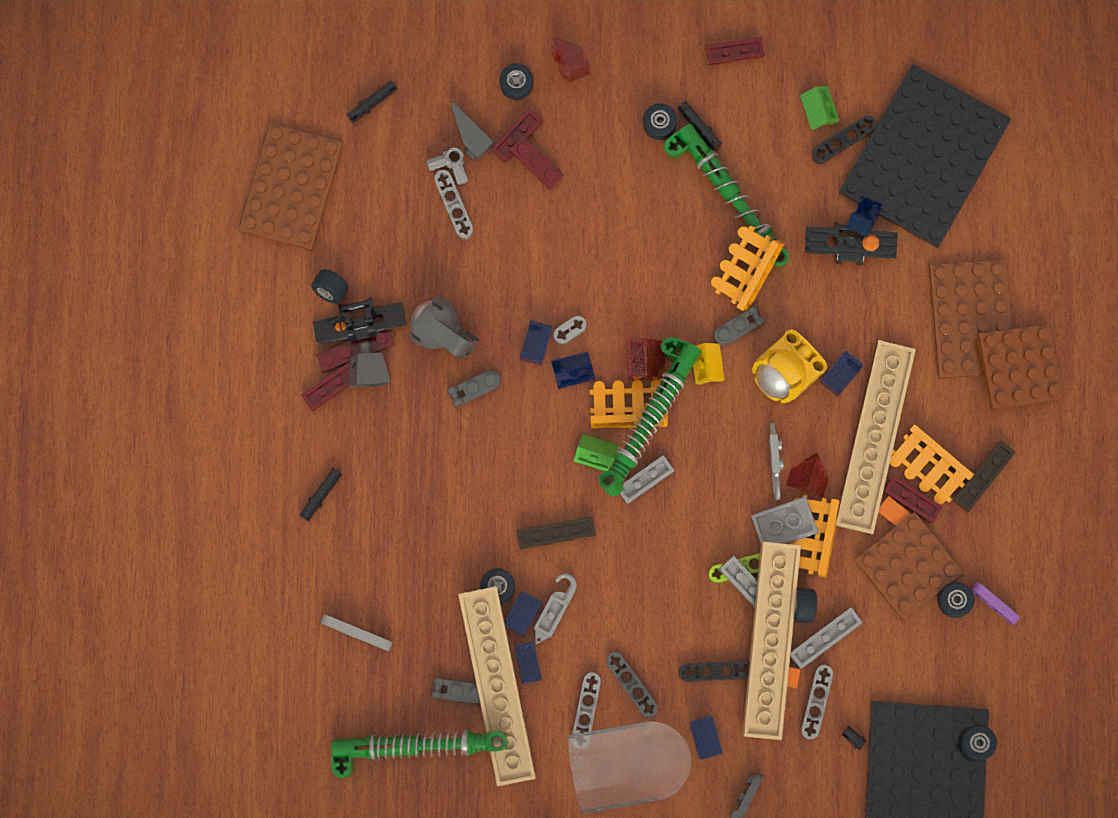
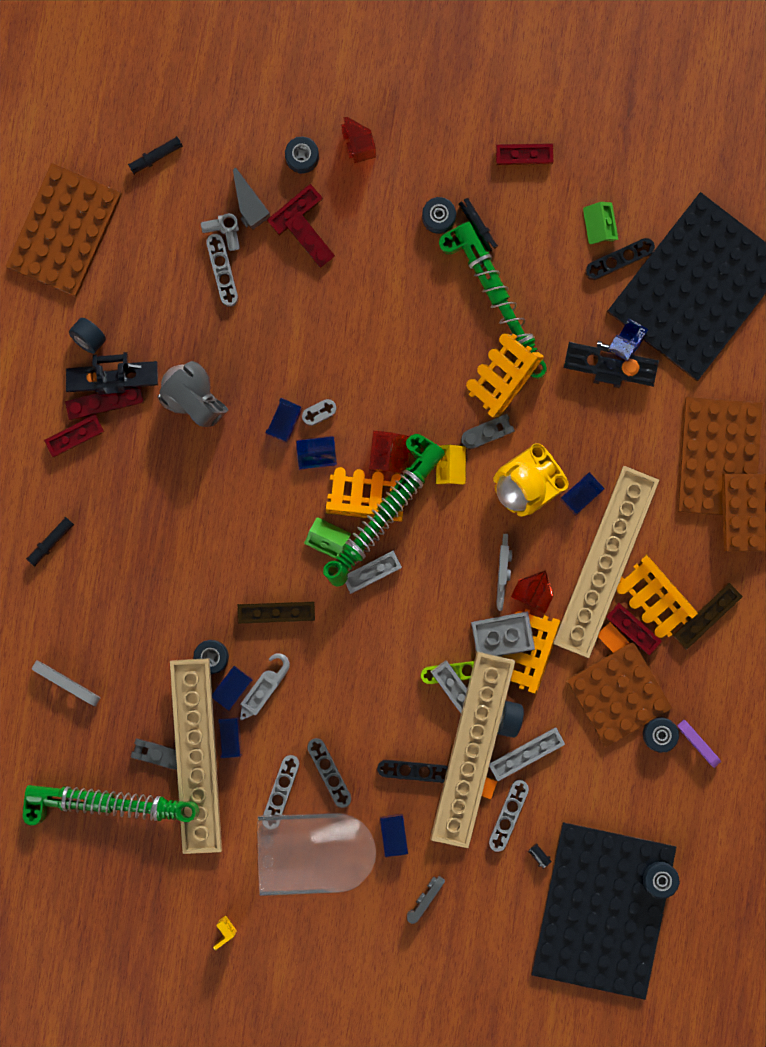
camera: 10 degrees right, 5 degrees up
(368, 368) = (113, 423): dark grey torso -> none
(474, 388) = (216, 456): dark grey plate -> none

